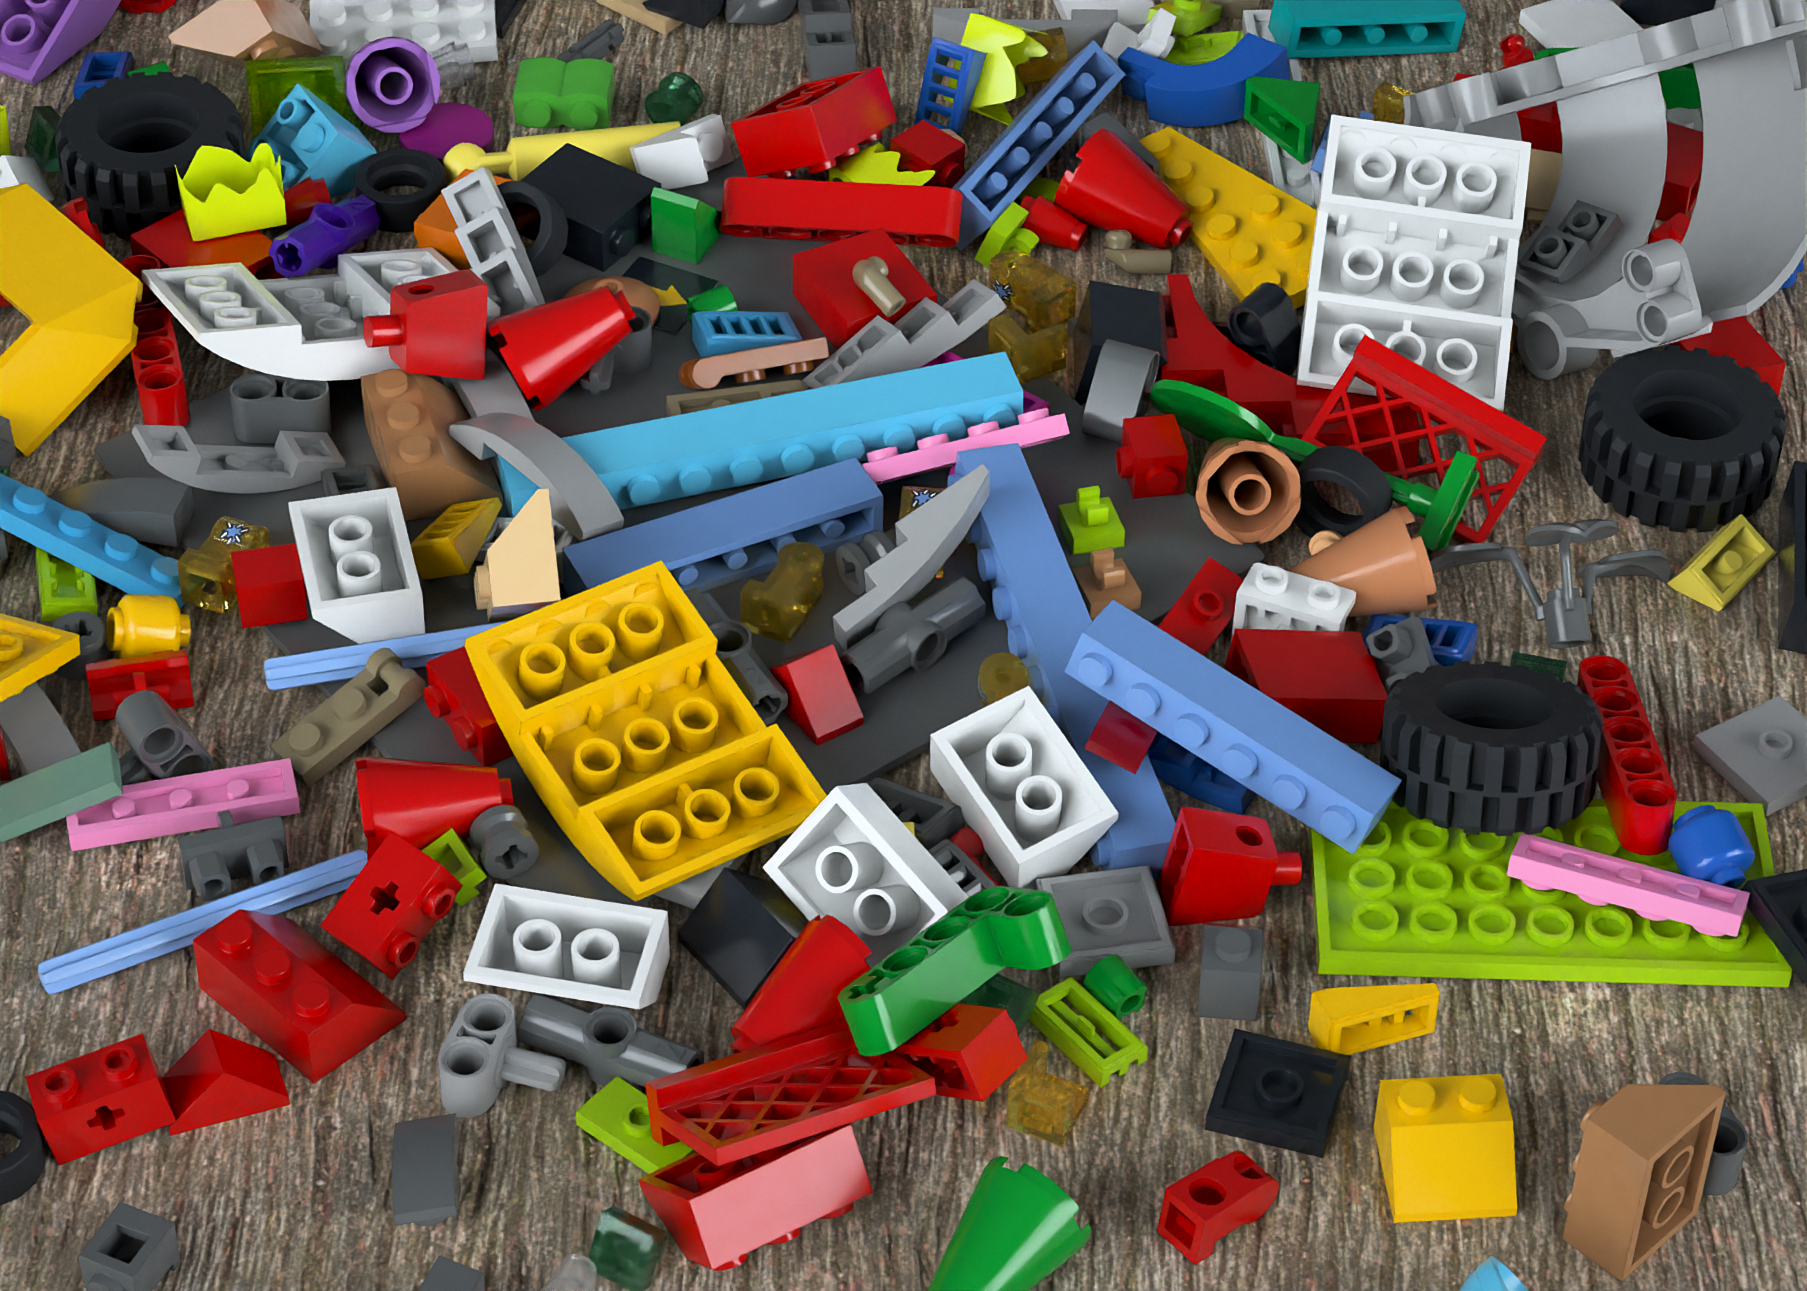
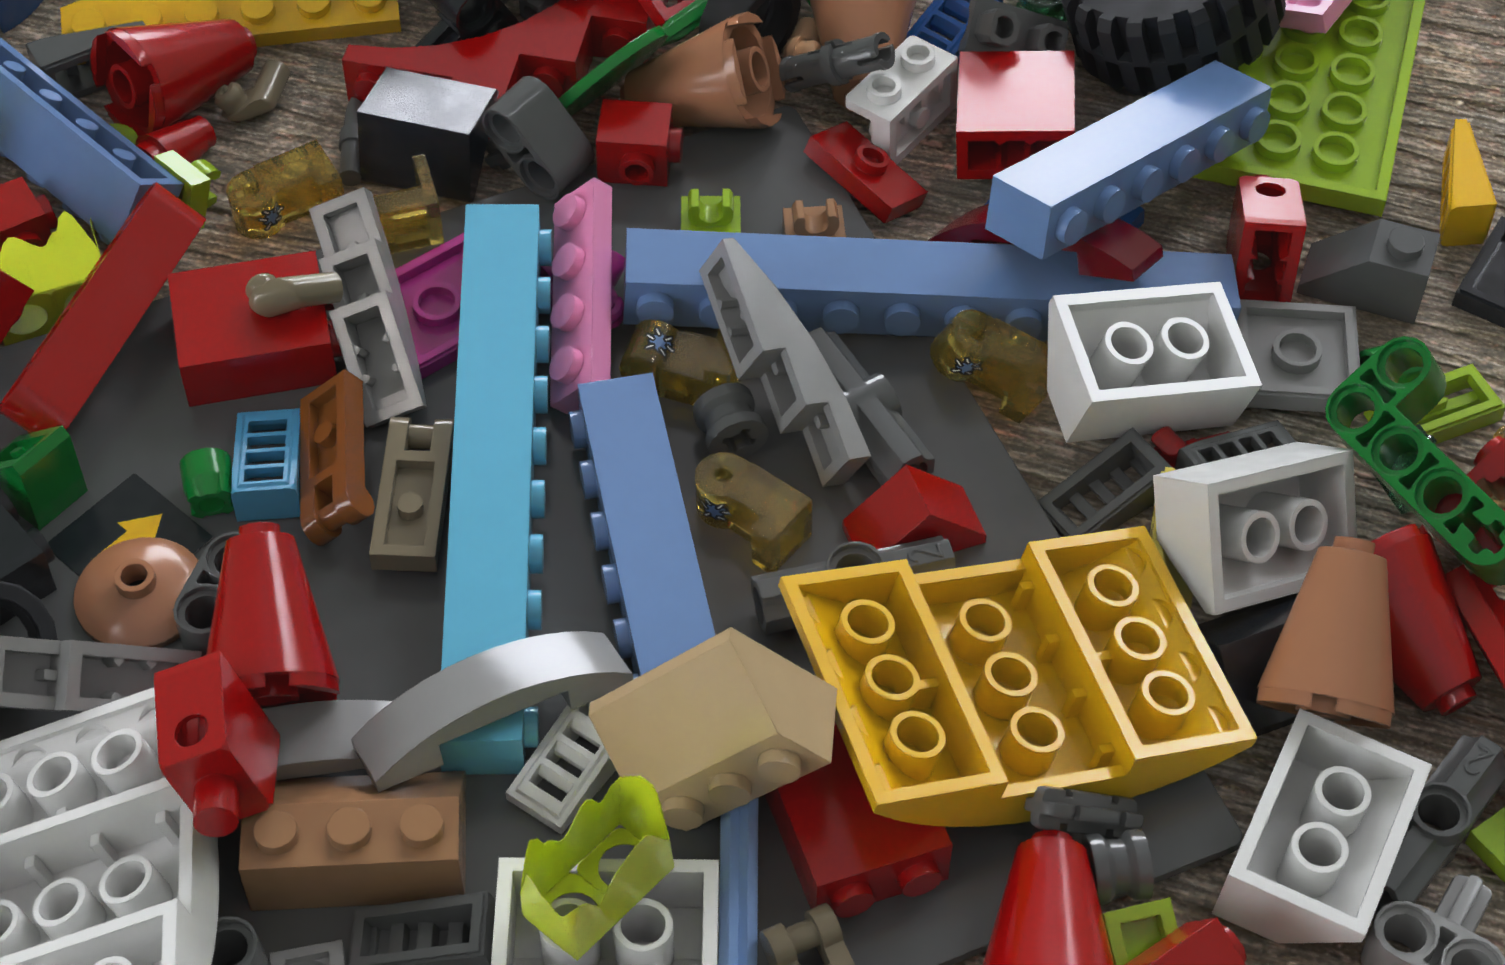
camera: 75 degrees left, 10 degrees up
(367, 512) = (547, 865): none -> neon yellow piece
(454, 539) = (526, 791): yellow slope -> none
(540, 807) = (1082, 812): none -> dark grey axle
(732, 923) = (1336, 641): none -> nougat cone
(1297, 555) = (837, 62): none -> dark grey pin

